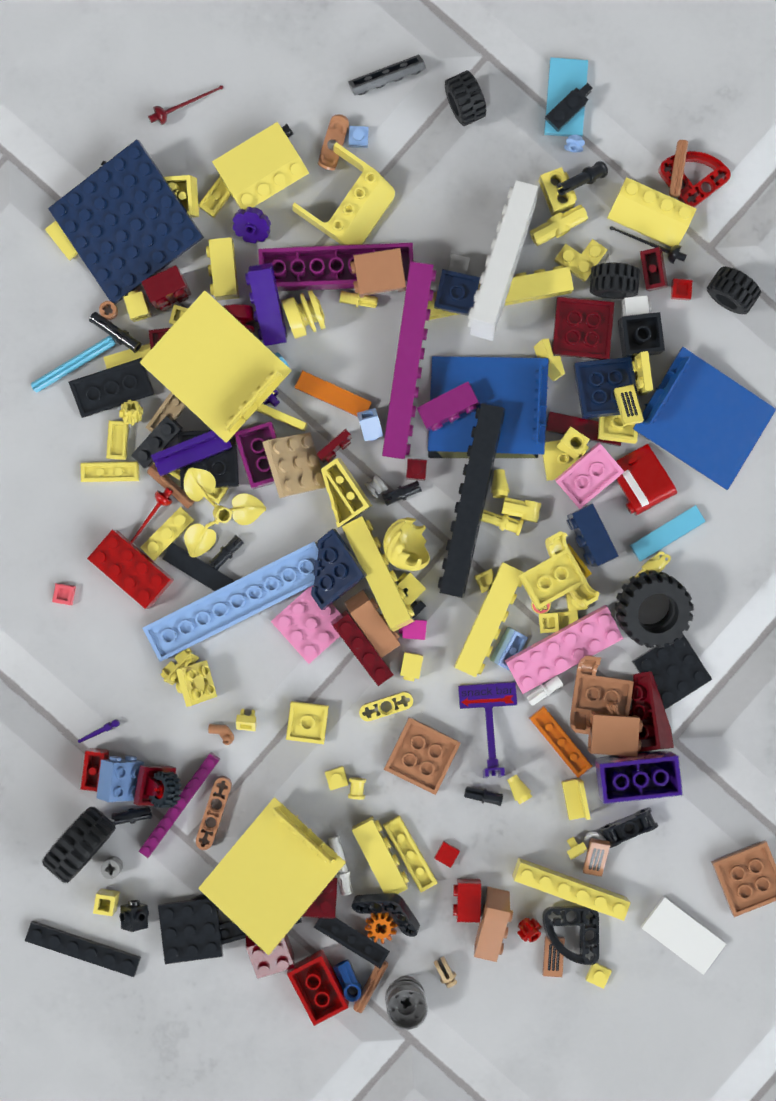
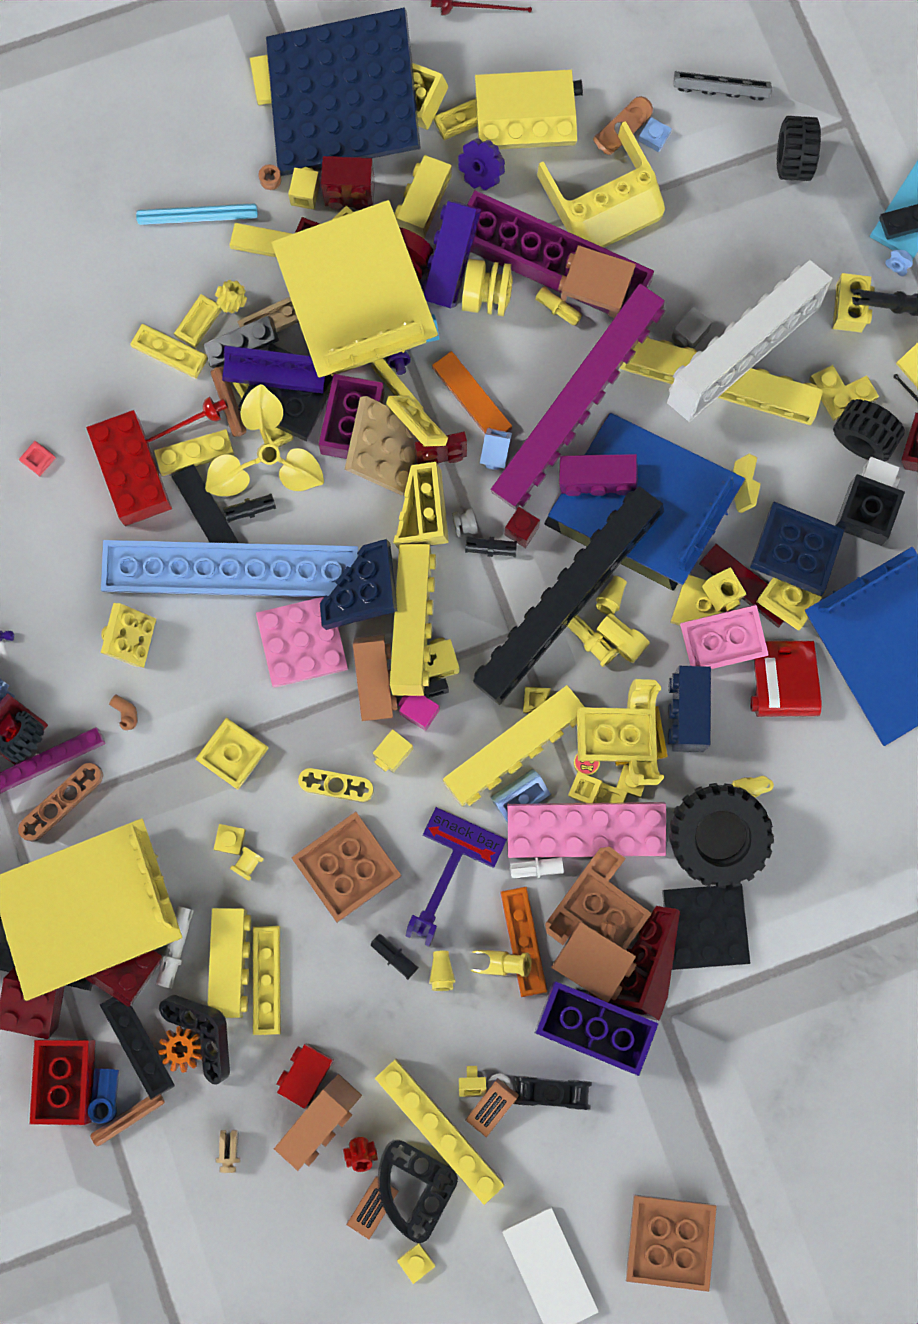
camera: 25 degrees right, 10 degrees down
(111, 387) = (224, 257): black tile -> none
(121, 336) = (267, 210): black pin -> none
(184, 659) = (133, 600): light yellow hinge -> none
(246, 722) = (160, 714): light yellow tile -> none
(309, 438) = (417, 421): none -> light yellow tile
(362, 648) = (344, 697): dark red brick -> none
(405, 545) = (462, 604): light yellow piece -> none
(413, 1011) = (153, 1177): flat silver wheel -> none
(447, 854) = (310, 1005): red tile -> none
(456, 292) = (673, 347): dark blue plate -> none
(557, 763) = (503, 963): none -> light yellow piece
(558, 225) = (835, 340): light yellow piece -> none
(575, 799) = (504, 1022): light yellow panel -> none
(582, 328) = (804, 469): dark red plate -> none
(628, 405) = (812, 578): light yellow tile -> none
(642, 371) = (849, 549): light yellow plate -> none
(667, 533) = (784, 758): medium azure tile -> none

